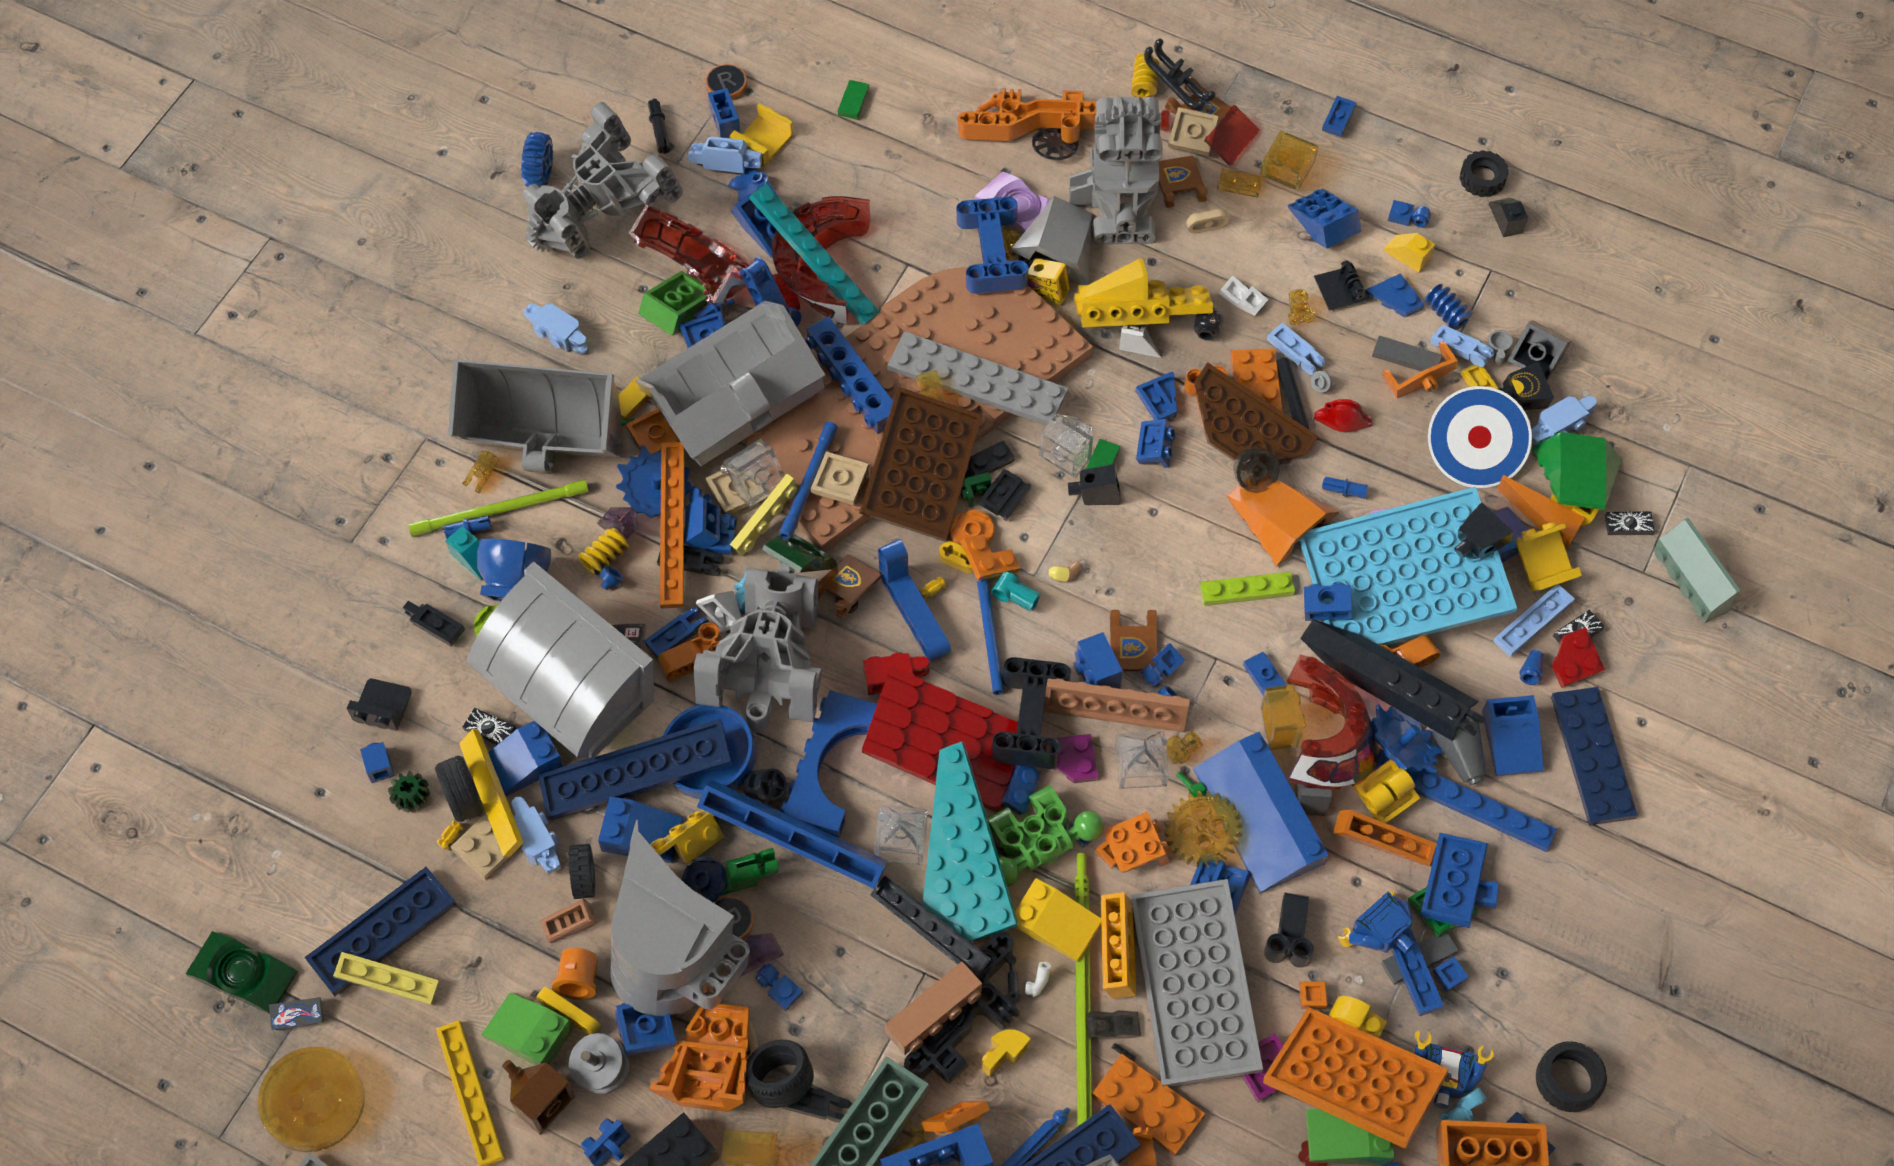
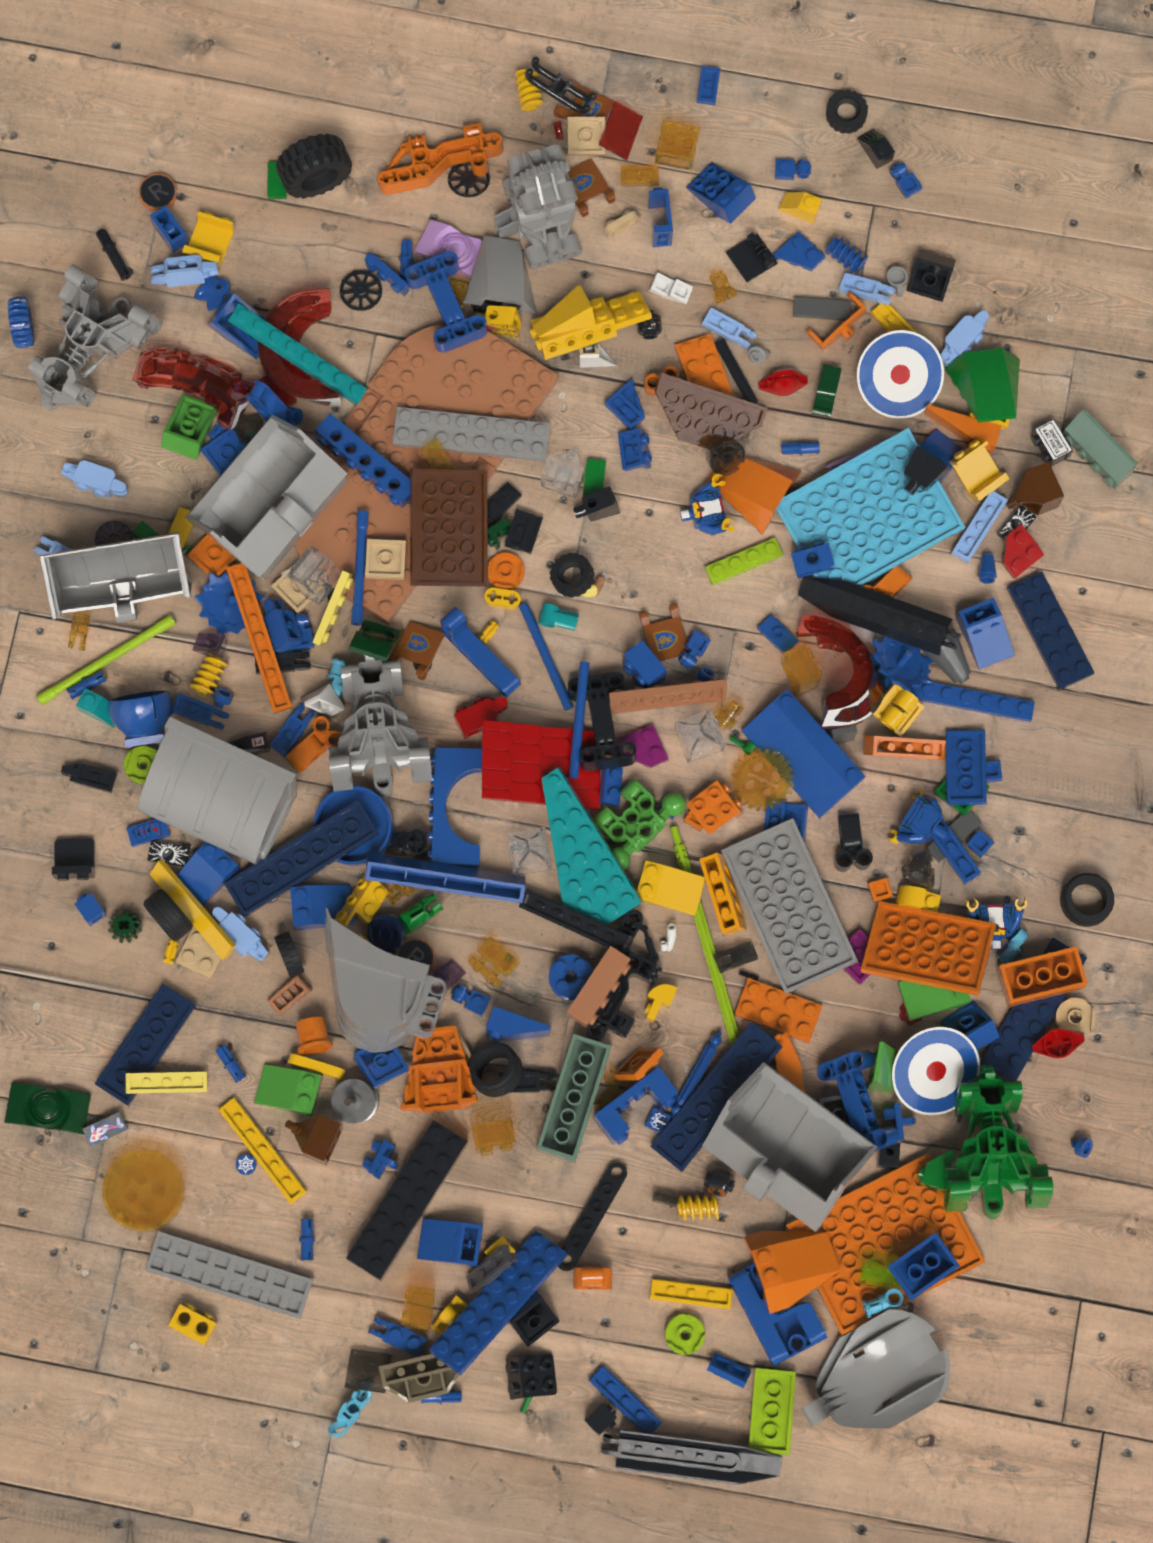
camera: 20 degrees left, 15 degrees up
(444, 1104) = (245, 1164): none -> blue tile
(470, 980) = (230, 1063): none -> blue axle
(481, 697) = (147, 832): none -> blue tile
(580, 585) = (198, 711): none -> blue hinge
(736, 837) = (399, 891): none -> clear yellow plate
(818, 1030) = (511, 1026): none -> blue slope
(827, 946) = (498, 958): none -> clear yellow plate
(892, 67) = (314, 165): none -> black tyre
(900, 977) = (564, 965): none -> blue wheel
(905, 219) = (360, 290): none -> black wheel
(937, 208) = (386, 274): none -> blue hinge
(966, 194) = (406, 257): none -> blue axle
(984, 562) = (527, 599): orange plate -> none
(1004, 701) = (579, 720): none -> blue piece
(1048, 563) = (578, 587): none -> black tyre
(1221, 521) = (708, 509): none -> torso
(1249, 233) = (662, 234): none -> blue panel
(1367, 982) = (919, 869): none -> clear smoke cylinder
(1391, 435) = (826, 390): none -> dark green piece
(1529, 387) = (928, 316): black torso -> none
(1533, 255) = (908, 183): none -> blue plate
(1613, 596) = (1038, 490): none -> reddish brown piece
(1629, 523) = (1036, 416): tile -> none
(1640, 552) = (1051, 443): none -> brick

